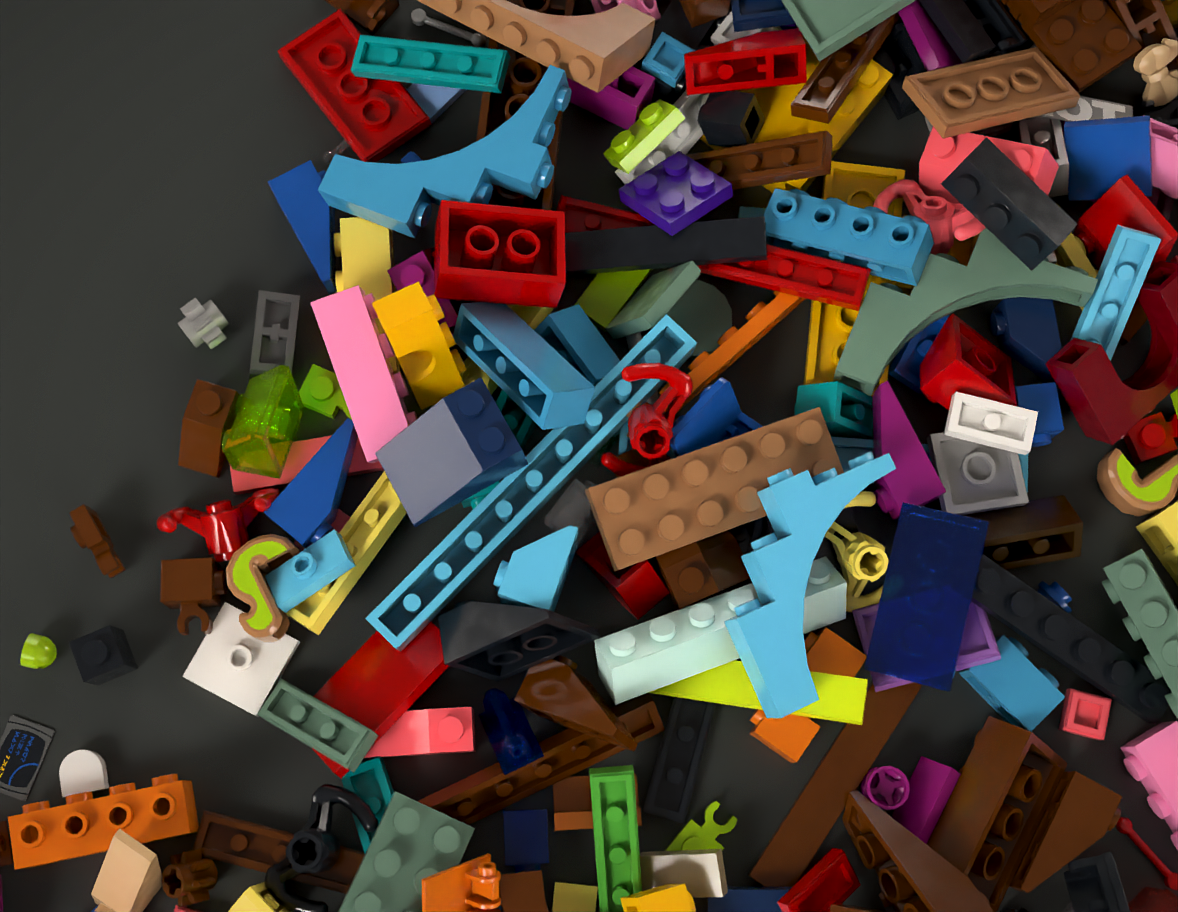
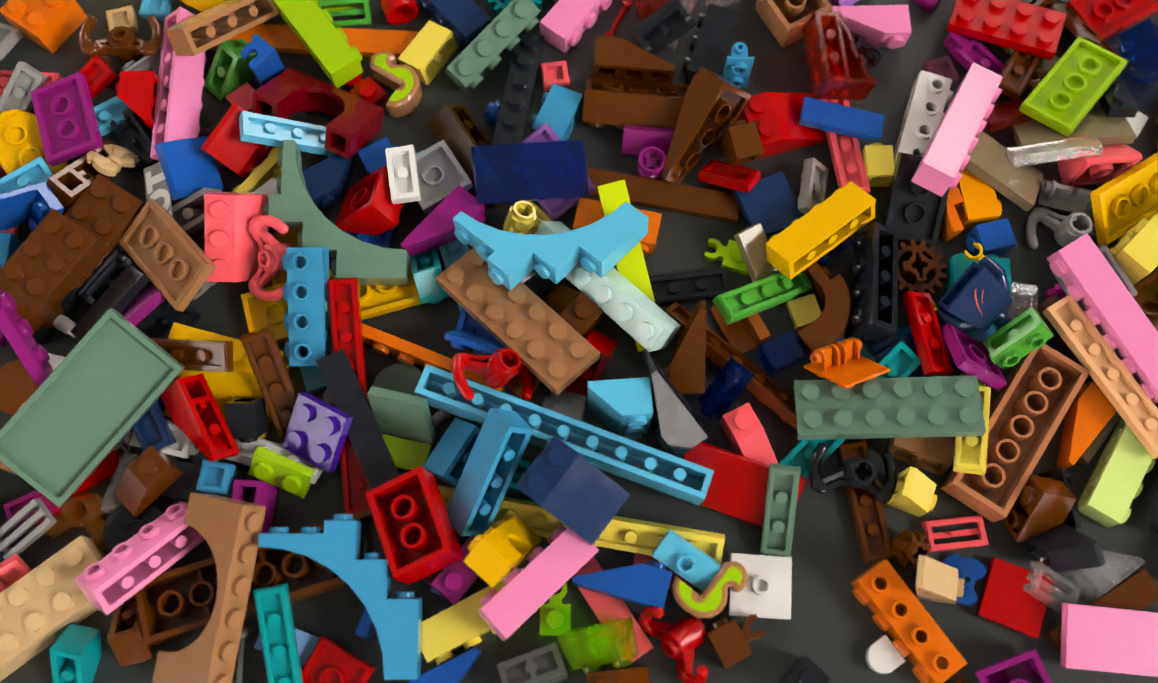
camera: 110 degrees left, 5 degrees down
(1009, 204) = (252, 205): black brick -> none

